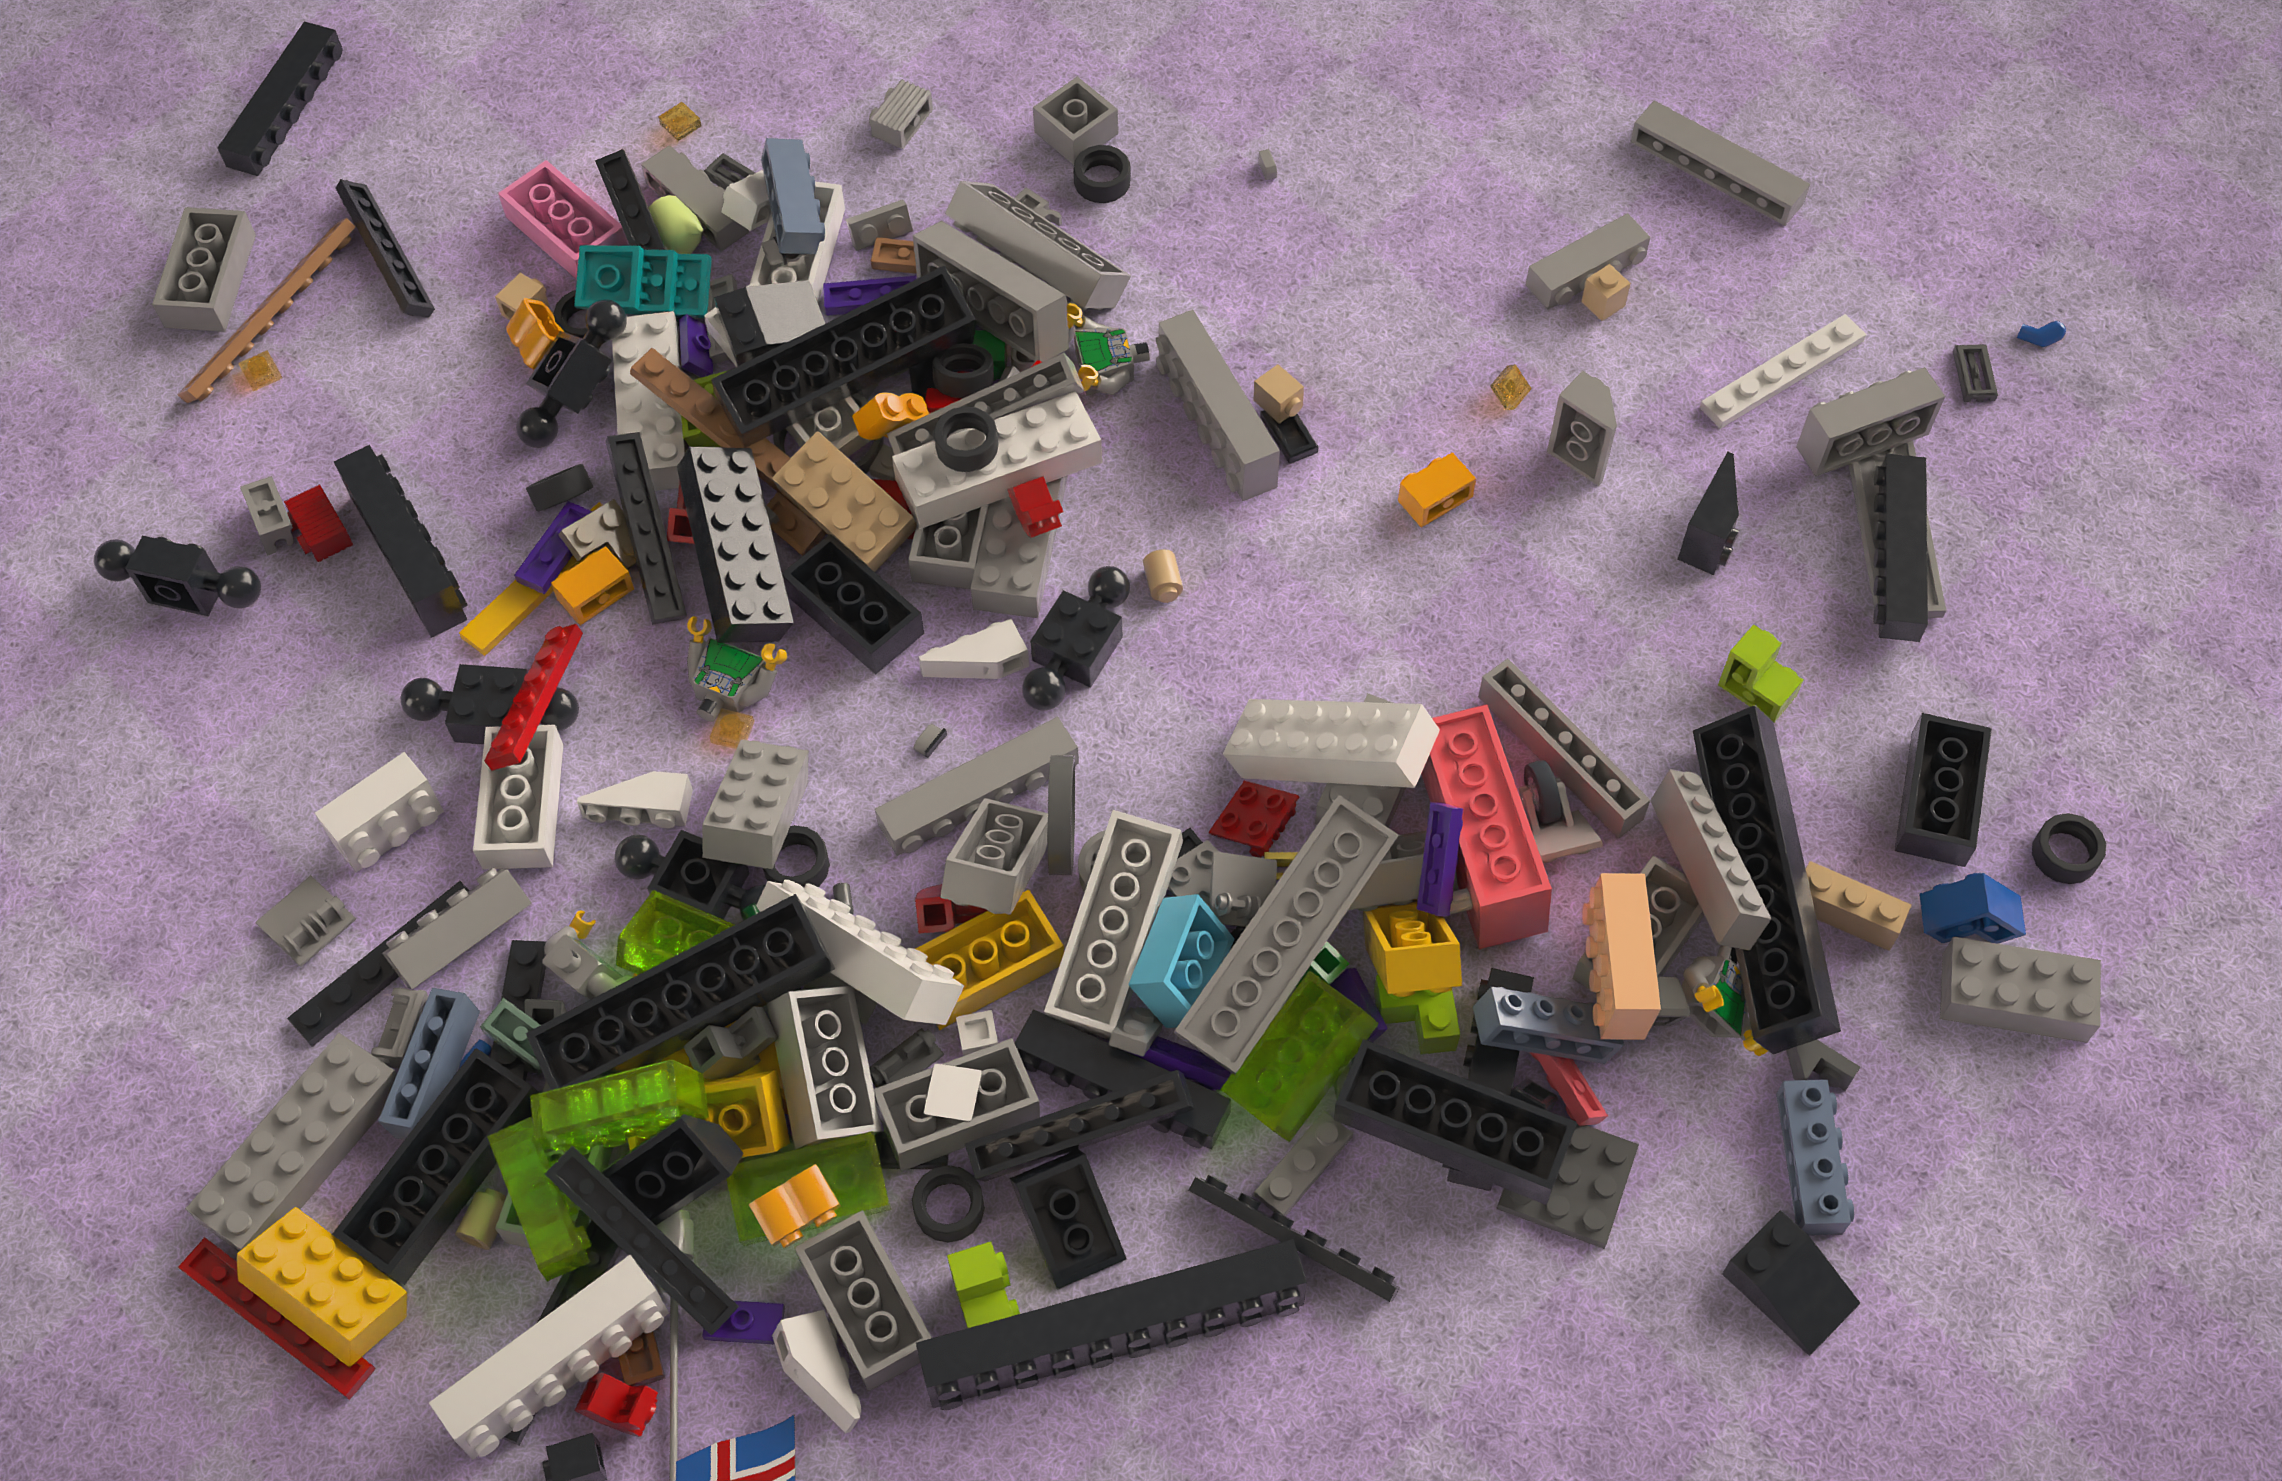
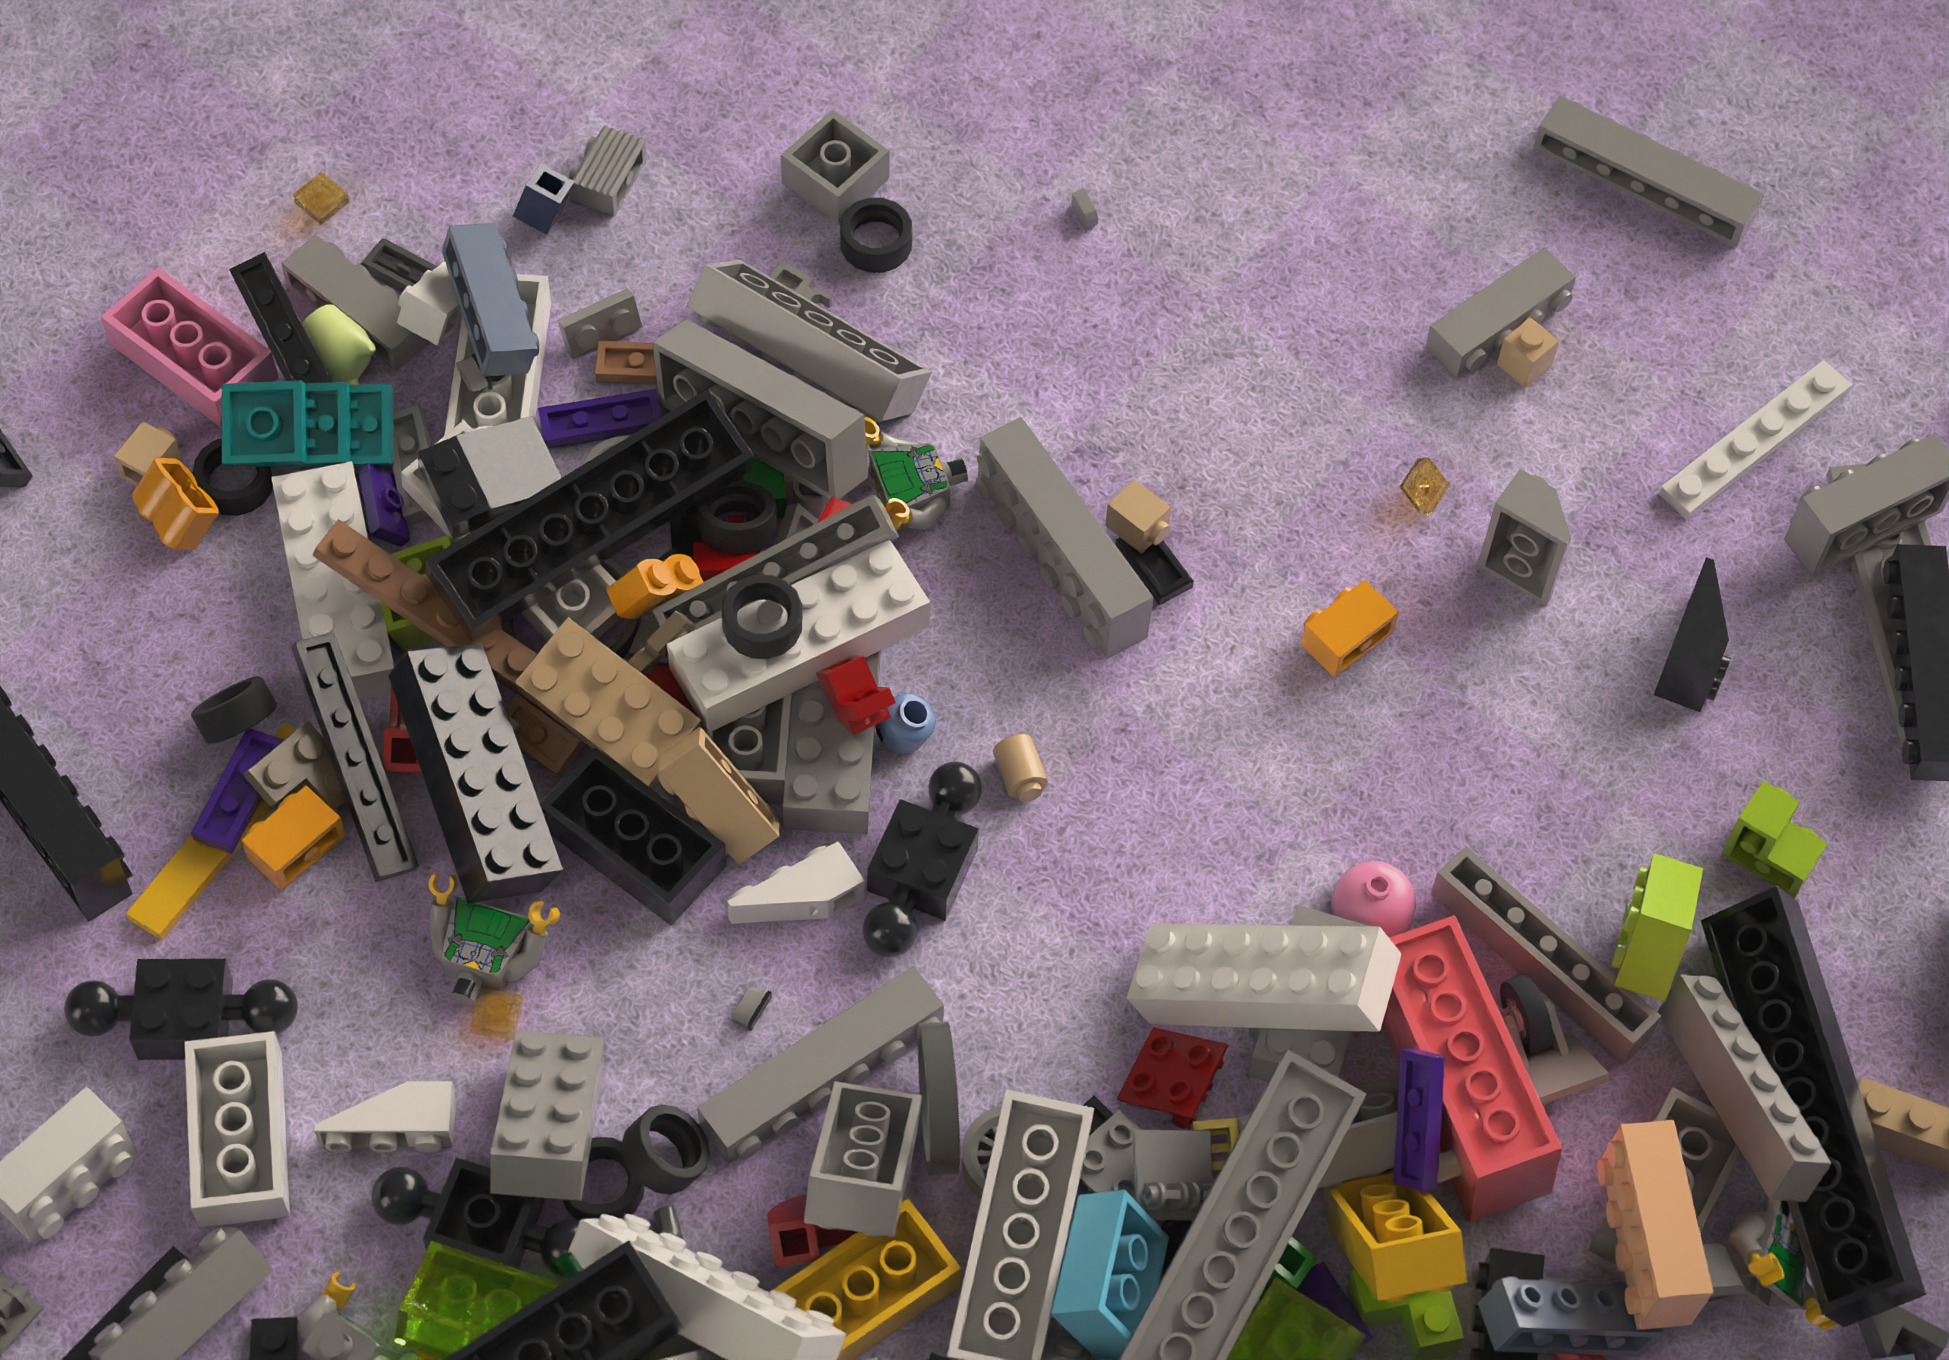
camera: 10 degrees left, 0 degrees up
(533, 697) = (242, 997): red plate -> none
(570, 373) = (229, 555): black brick -> none
(832, 852) = (649, 1166): none -> black tyre
(847, 130) = (543, 198): none -> dark blue brick
(878, 469) = (672, 629): none -> dark tan plate
(920, 576) = (718, 795): none -> tan brick
(1077, 535) = (909, 725): none -> medium blue head
(1434, 689) = (1376, 897): none -> bright pink cylinder
(1653, 730) = (1656, 926): none -> lime brick

